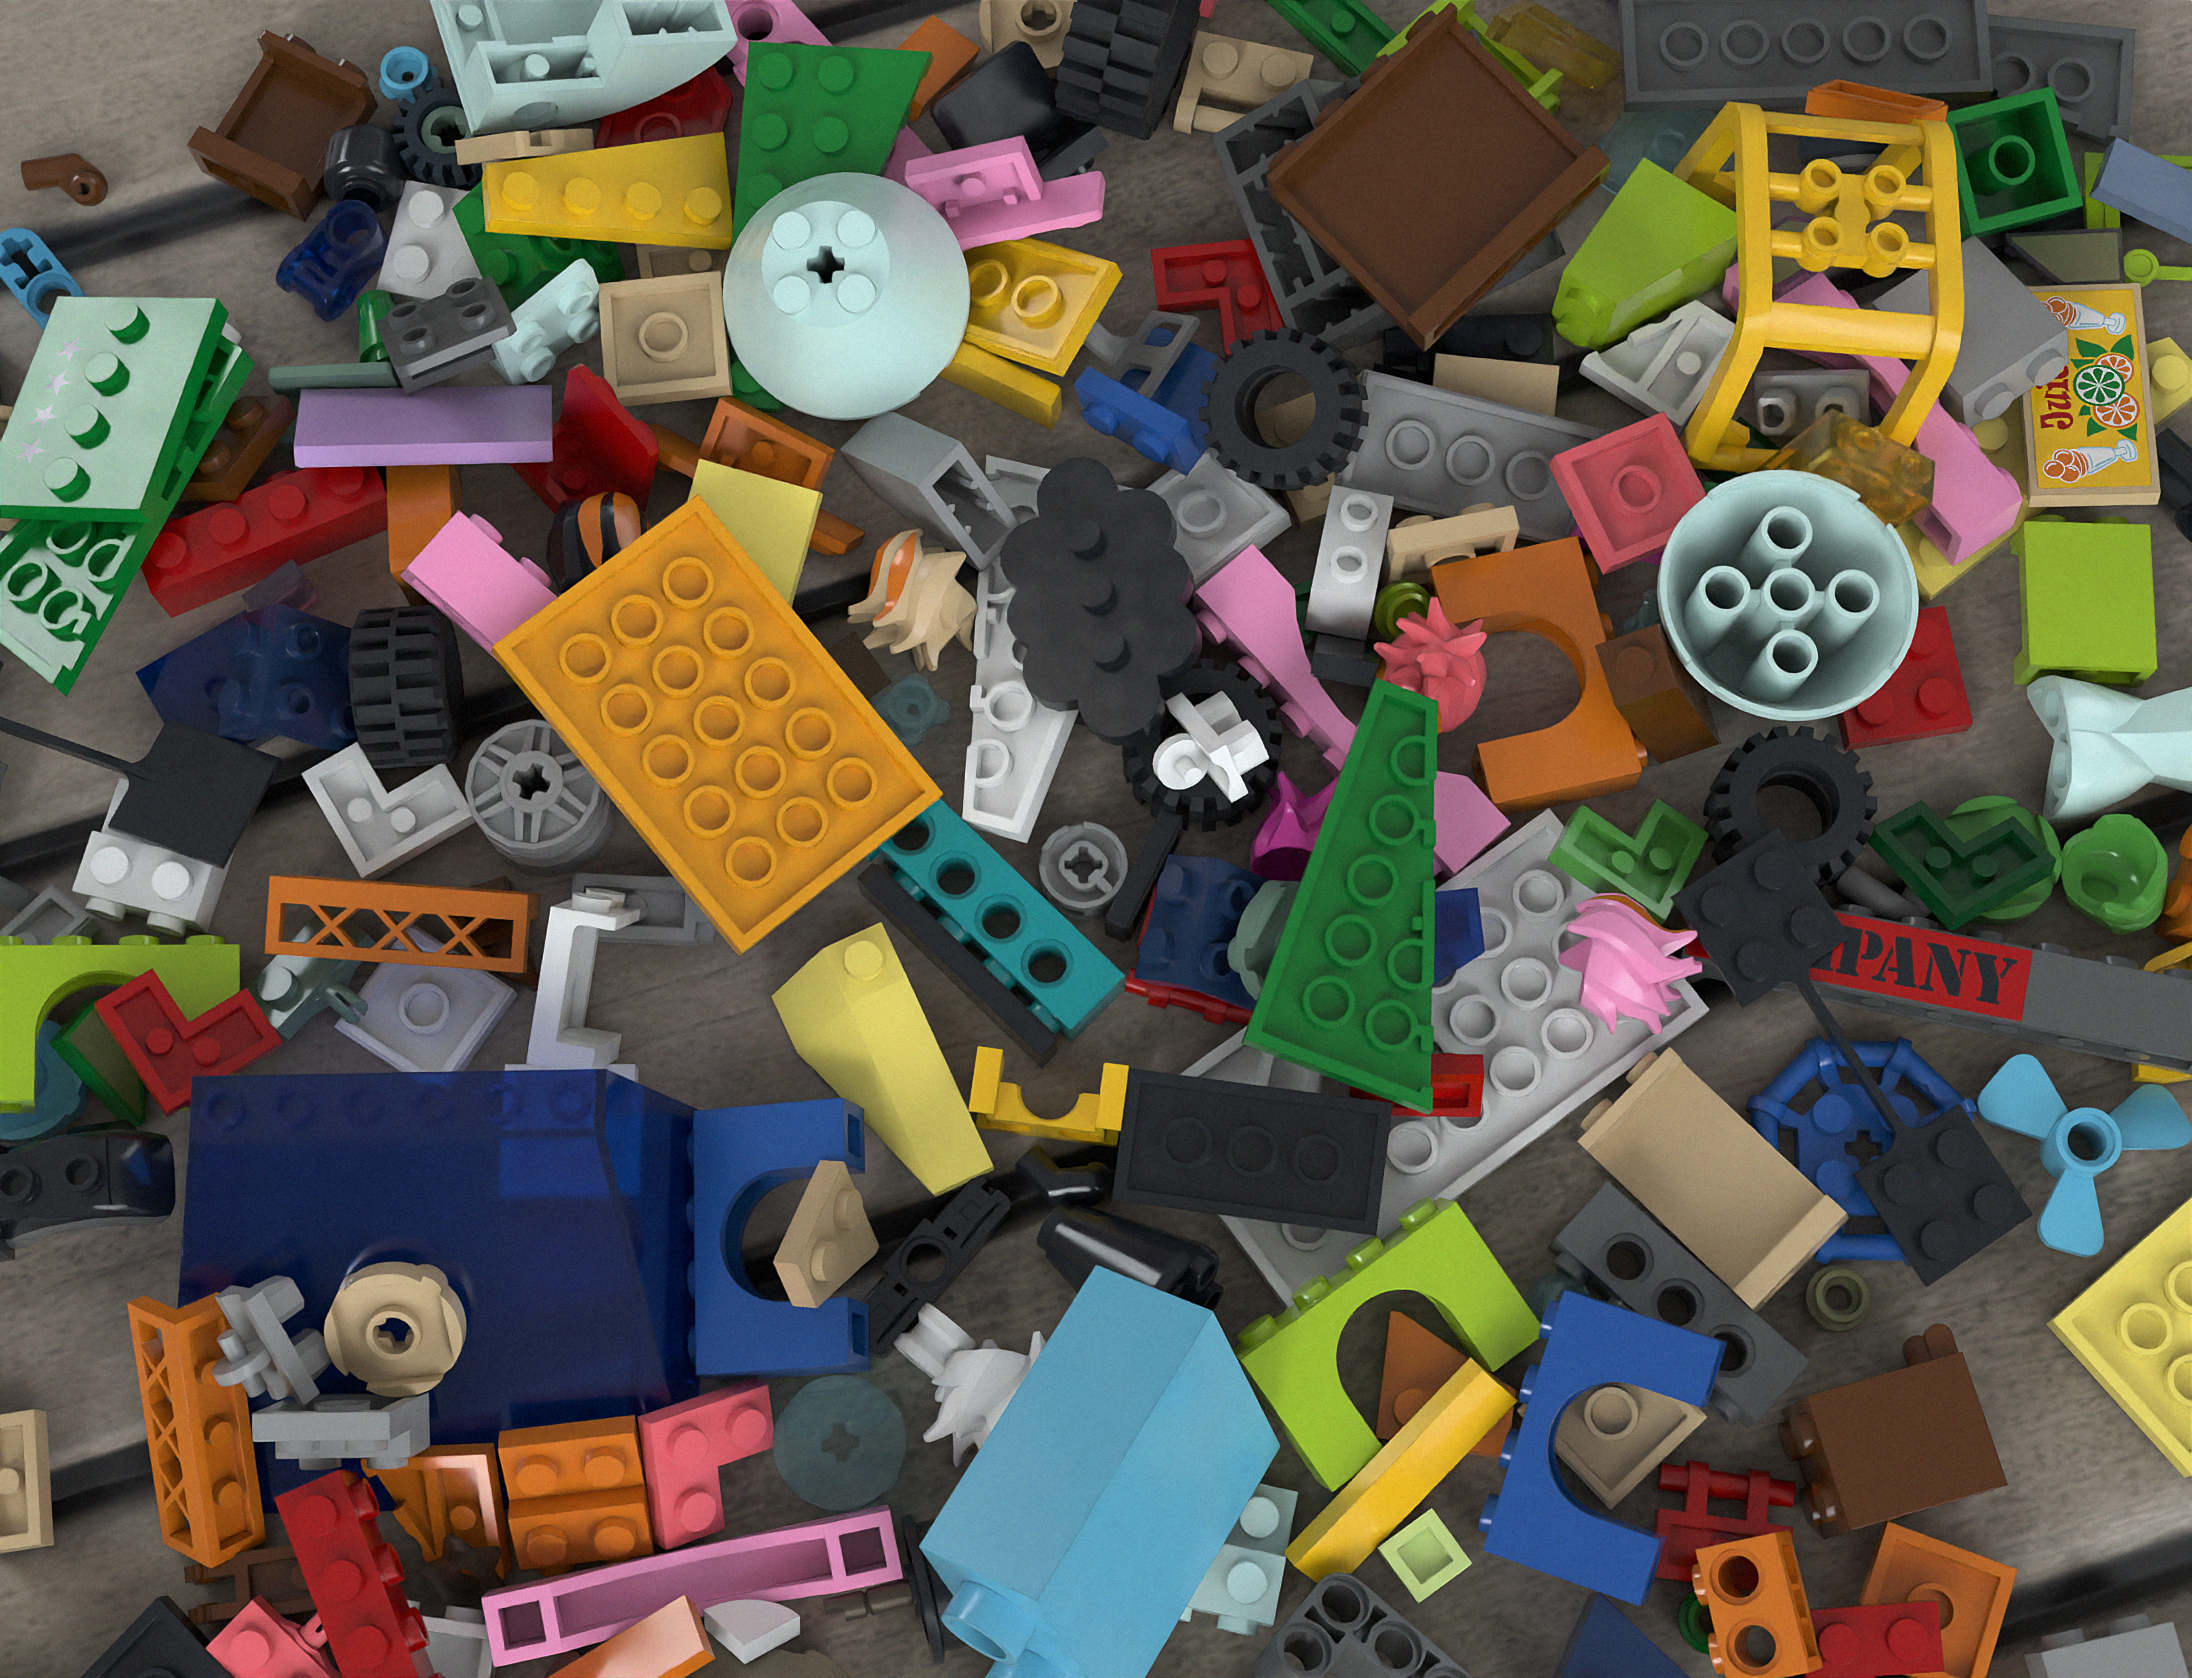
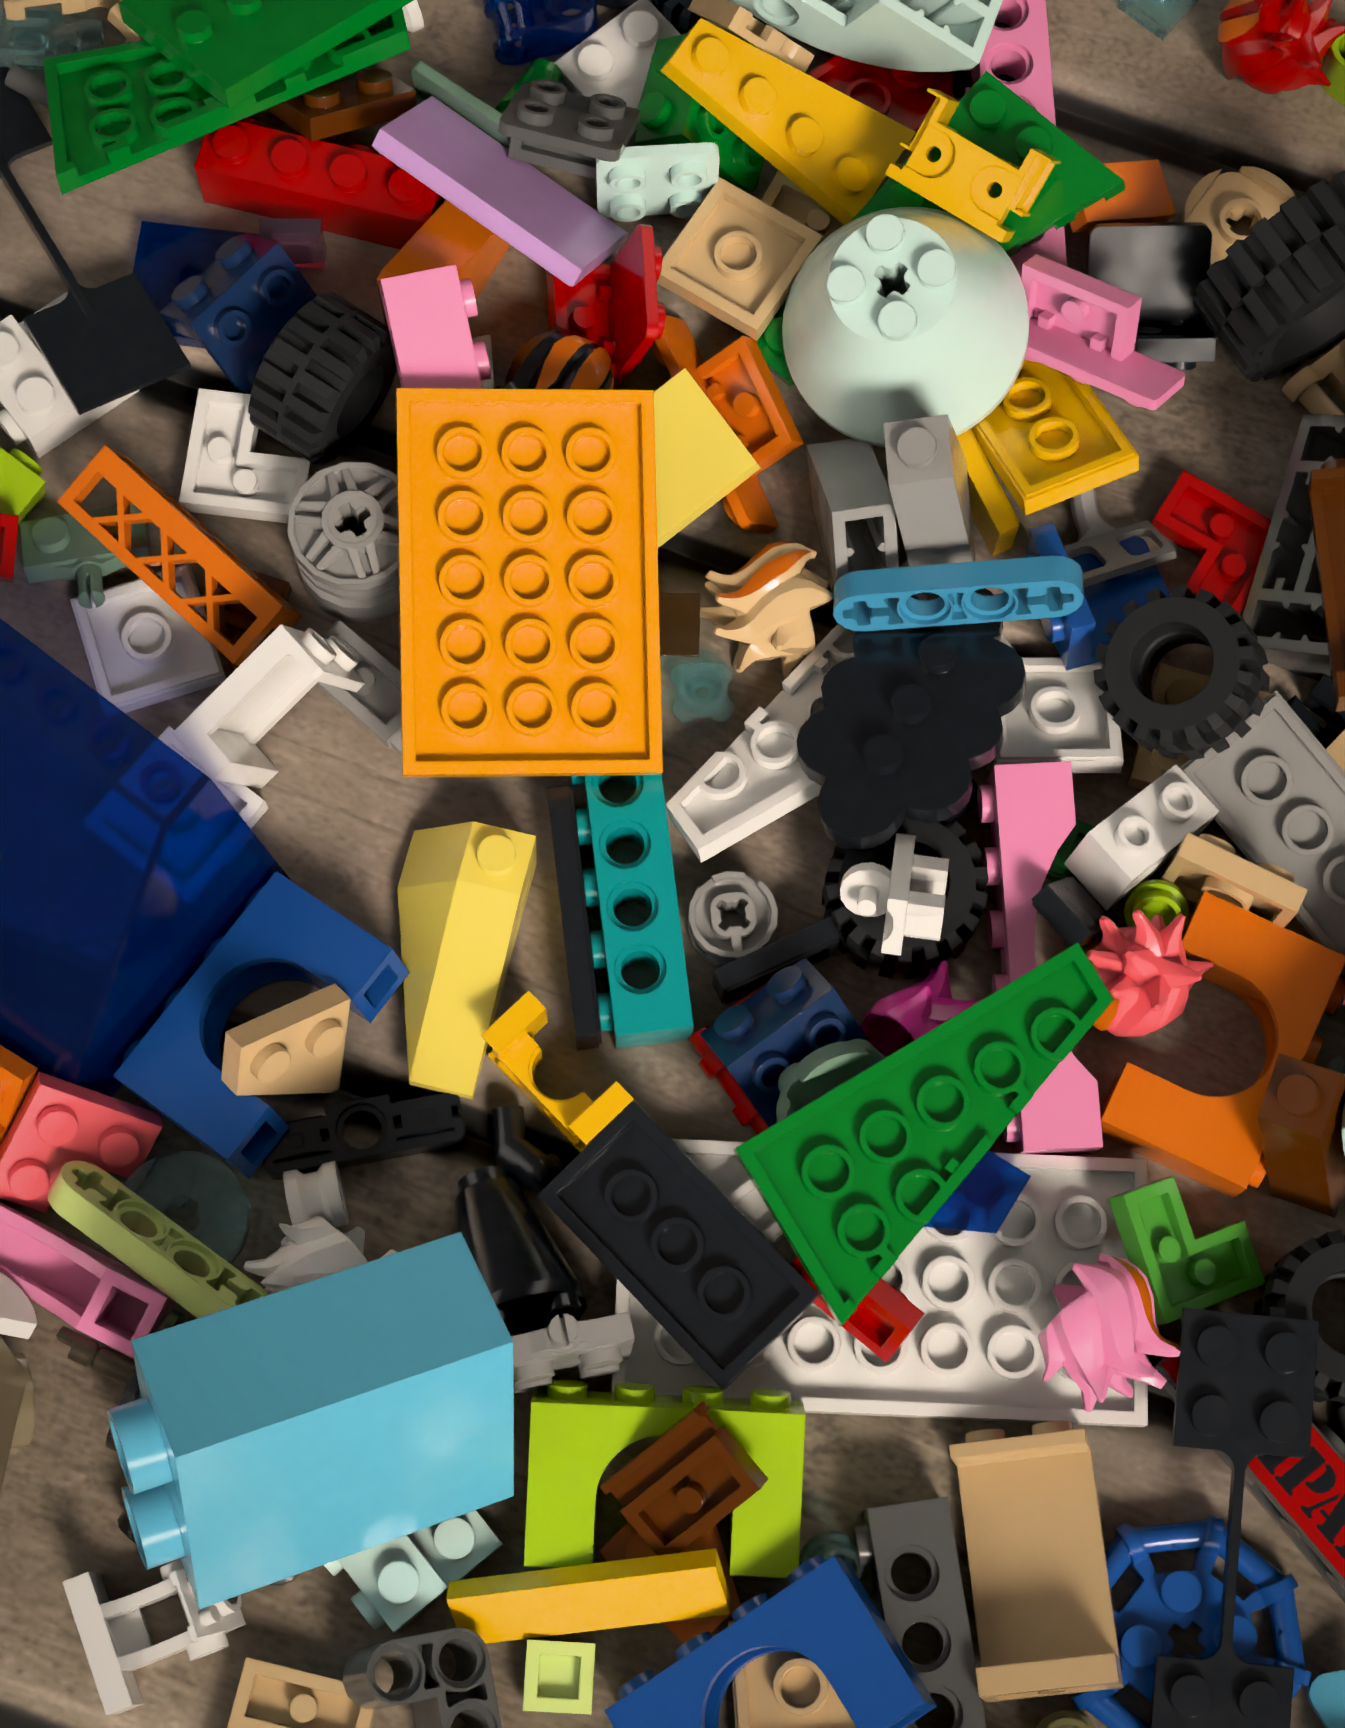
camera: 35 degrees right, 0 degrees up
(803, 135) = (966, 173): none -> yellow piece
(842, 1479) = (108, 1211): none -> yellowish green beam
(984, 419) = (930, 490): none -> light grey slope
(1116, 432) = (1050, 582): none -> dark azure beam
(1249, 1284) = (571, 1345): none -> light grey plate
(1406, 1327) = (684, 1482): none -> reddish brown plate

